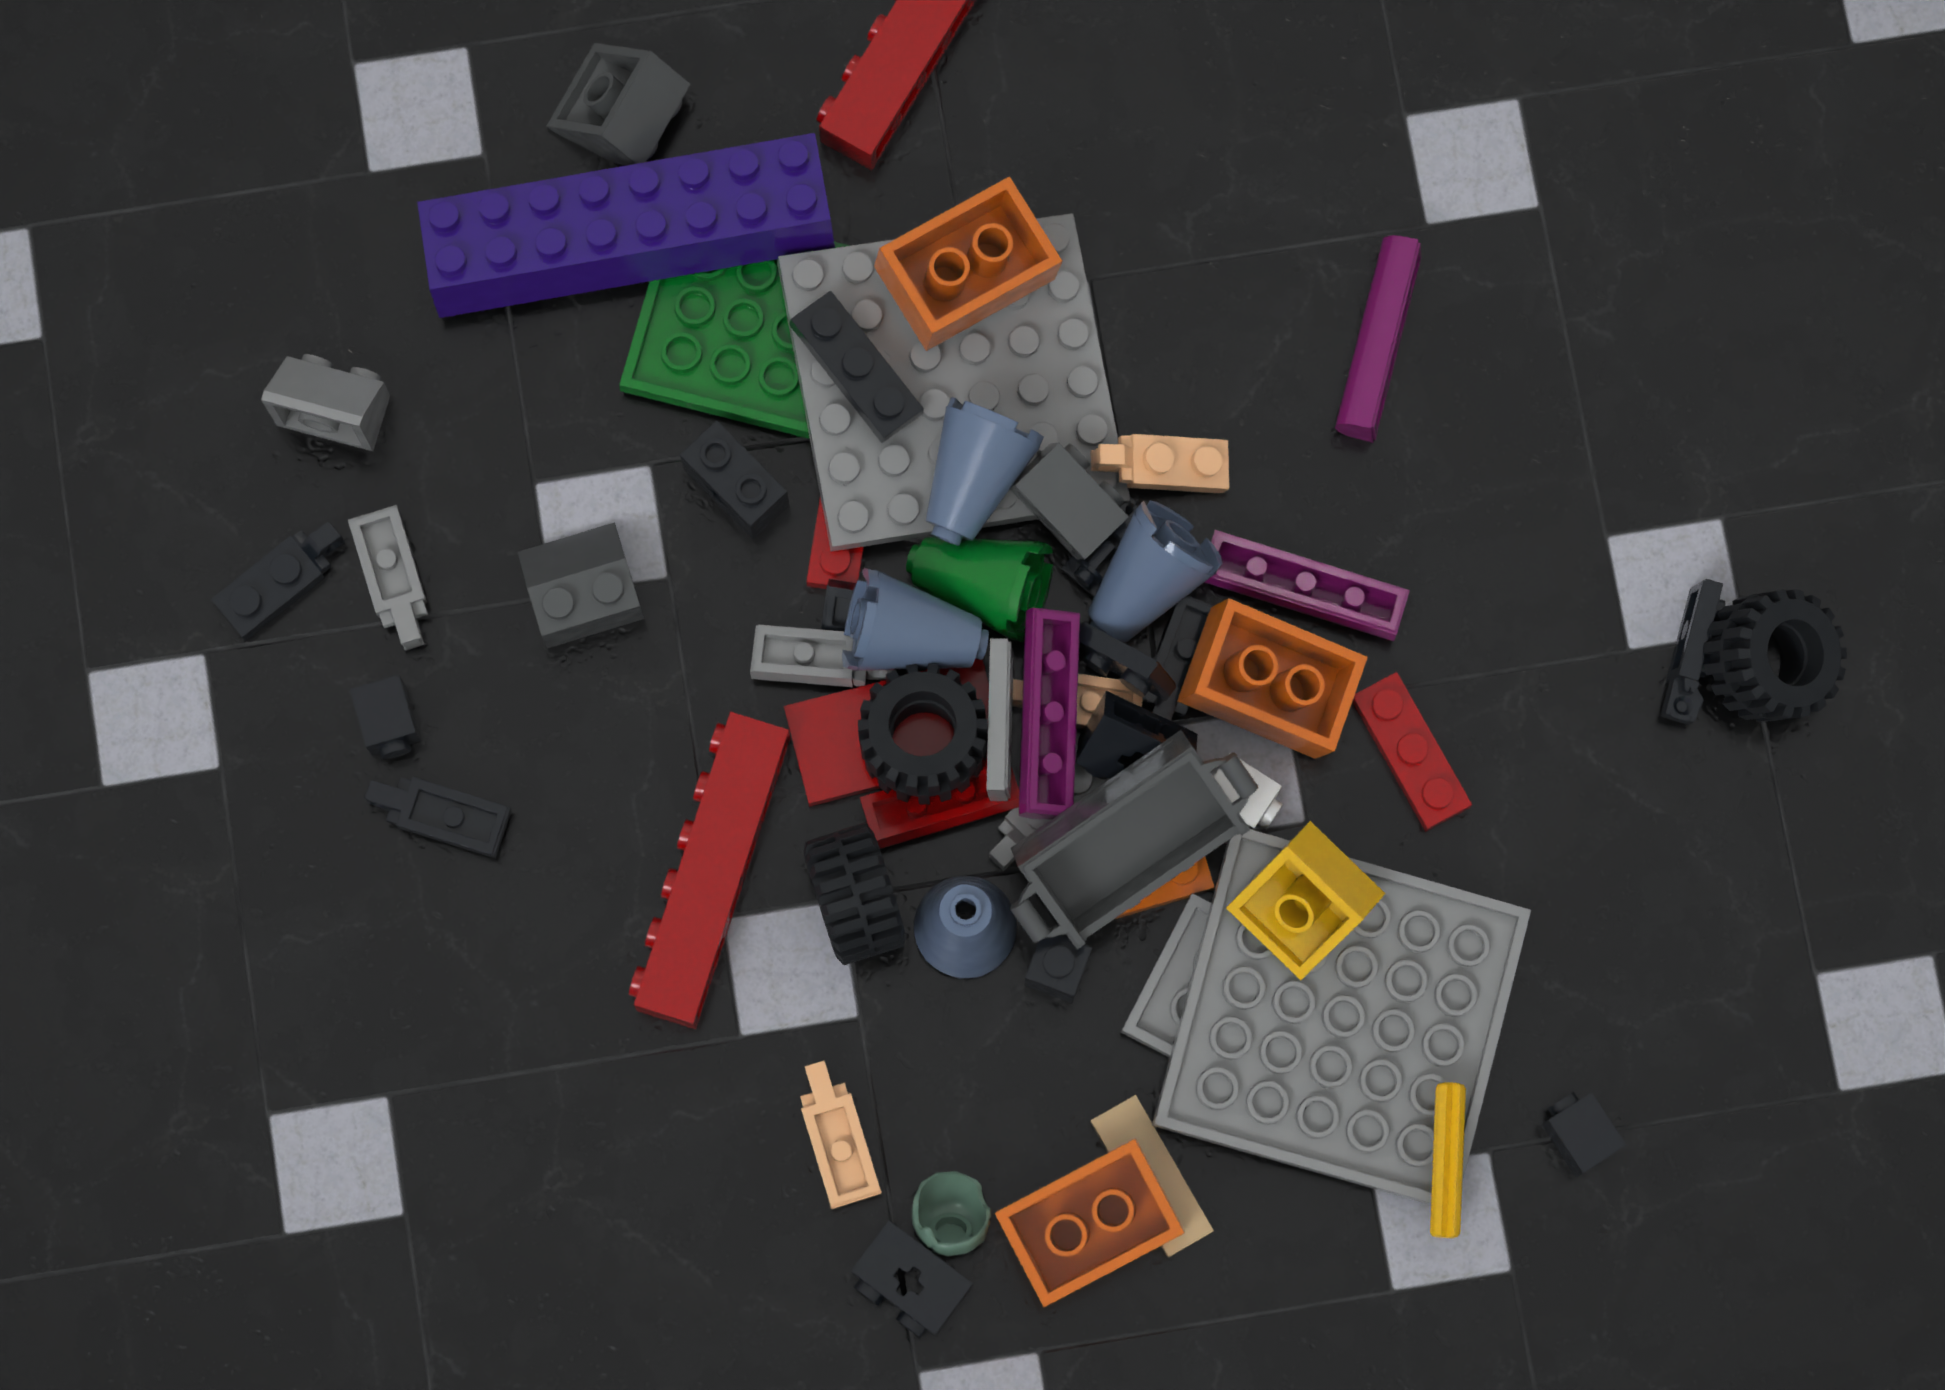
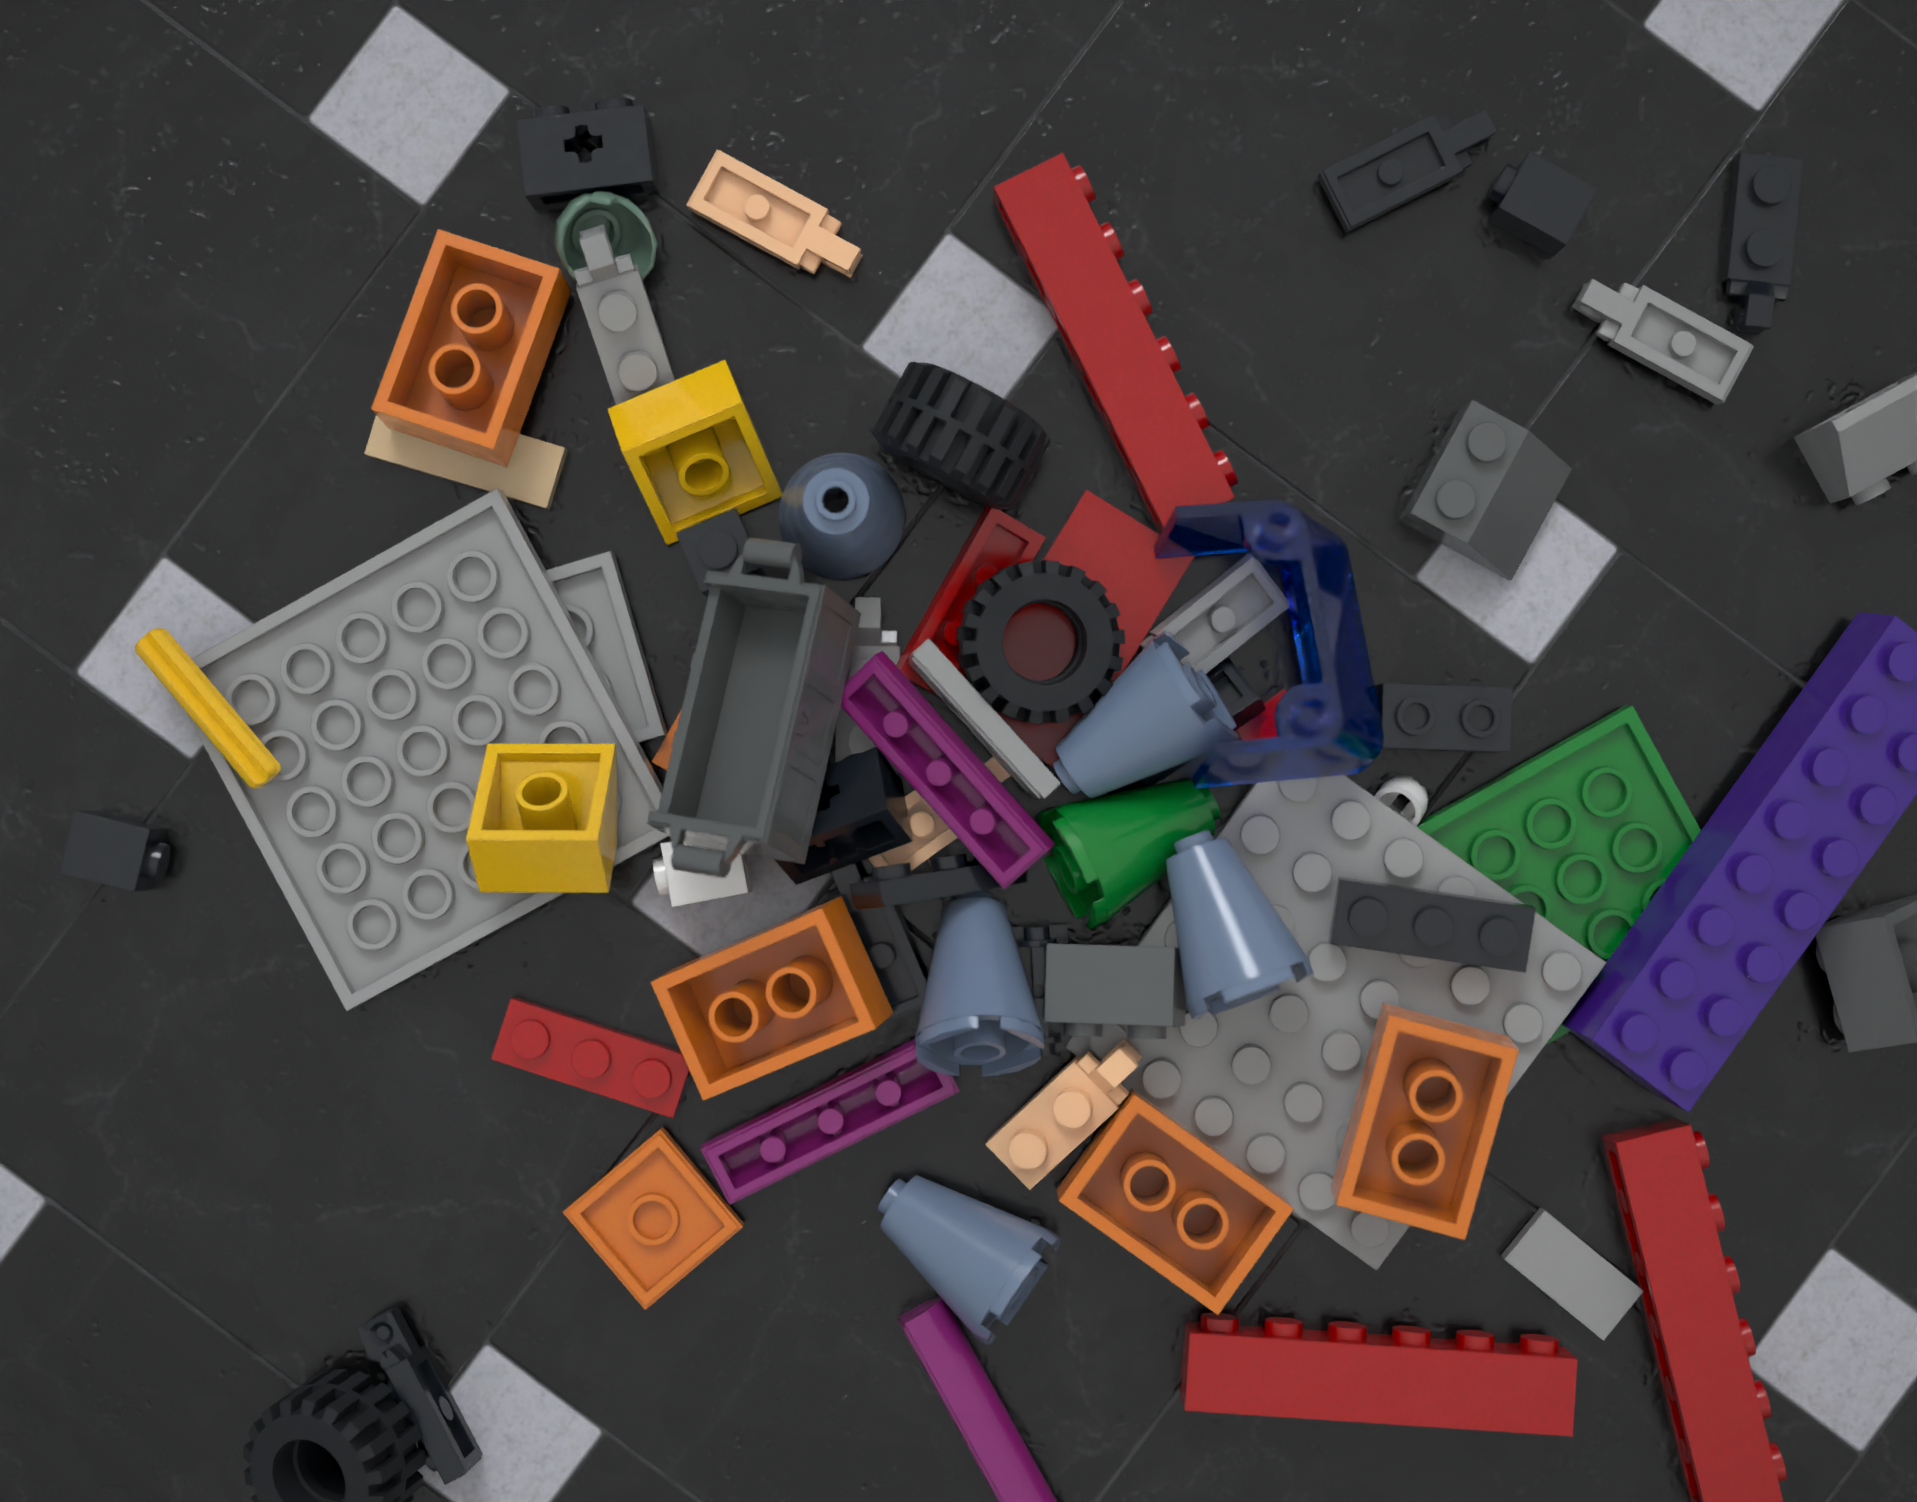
camera: 135 degrees right, 10 degrees up
(794, 529) = (1334, 716): none -> clear blue windscreen
(798, 446) = (1405, 785): none -> white hinge
(964, 111) = (1572, 1273): none -> light grey tile
(986, 1156) = (621, 319): none -> light grey hinge
(1015, 1042) = (694, 450): none -> yellow slope
(1130, 155) = (1378, 1376): none -> red brick
(1151, 354) = (1174, 1201): none -> orange brick
(1296, 438) = (966, 1250): none -> sand blue cone
(1461, 626) = (653, 1218): none -> orange plate

